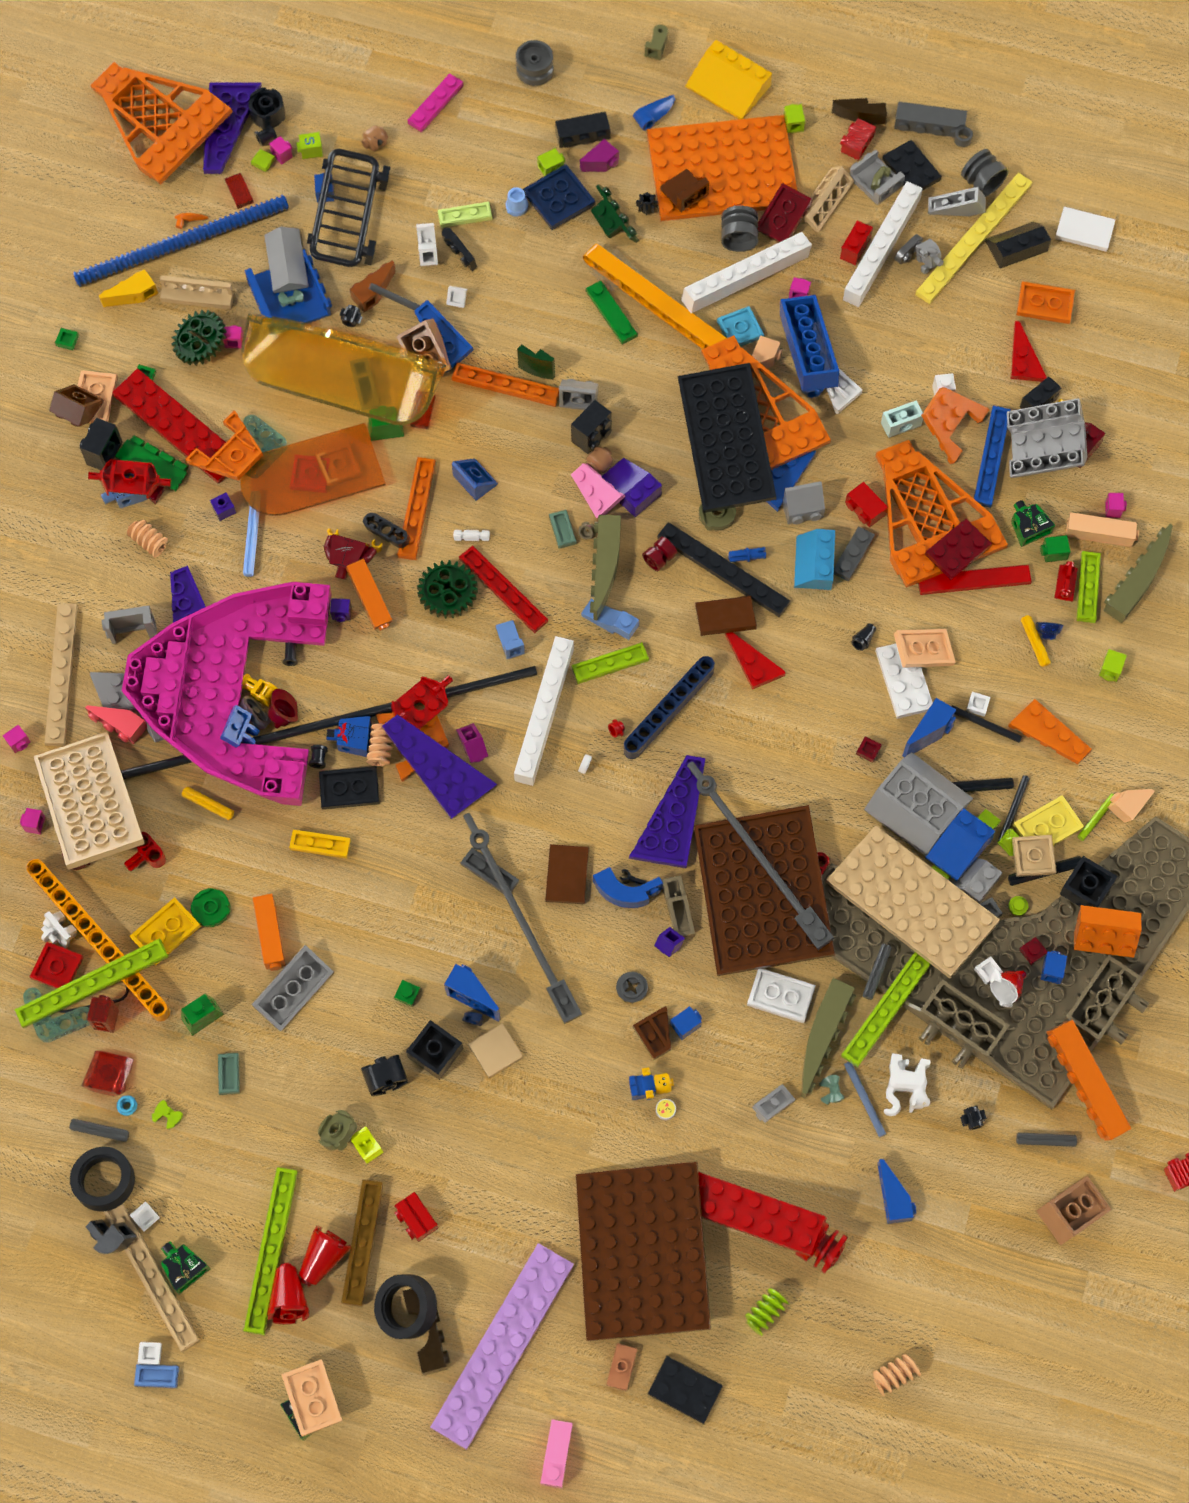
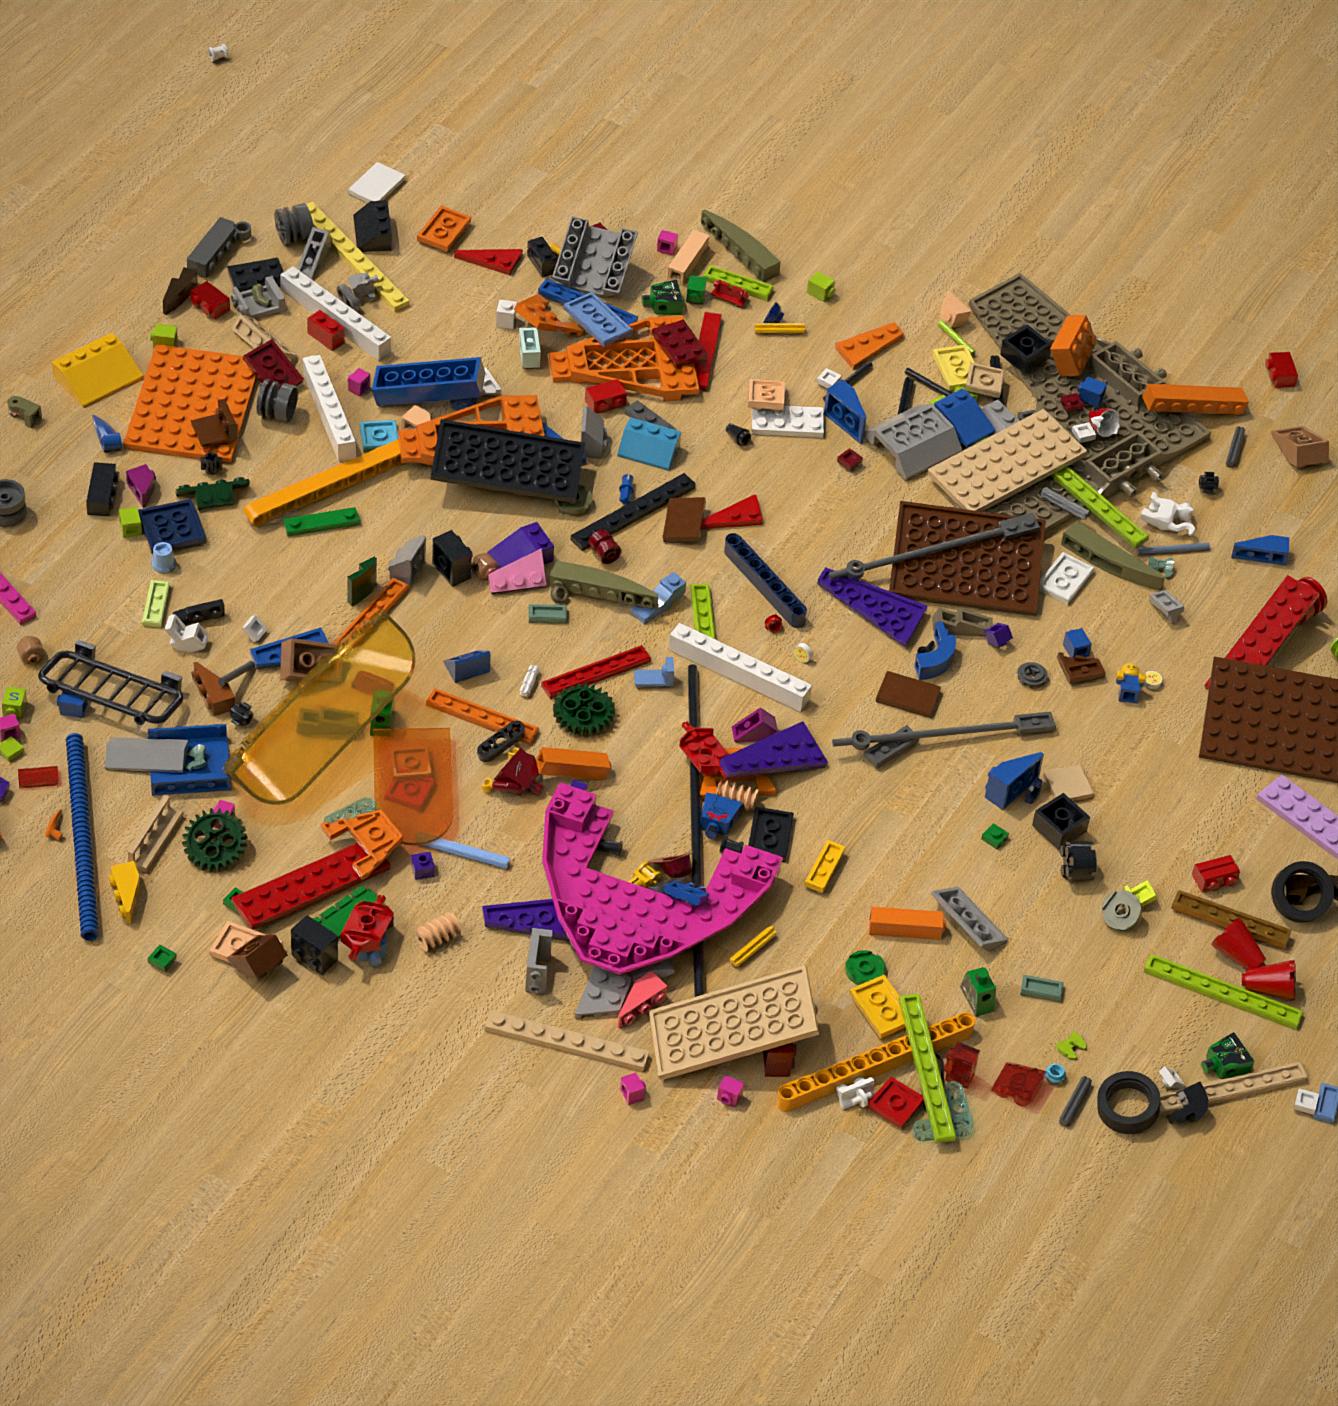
camera: 80 degrees left, 20 degrees down
(966, 468) = (598, 319): none -> medium blue tile
(1018, 905) = (1024, 405): lime plate -> none

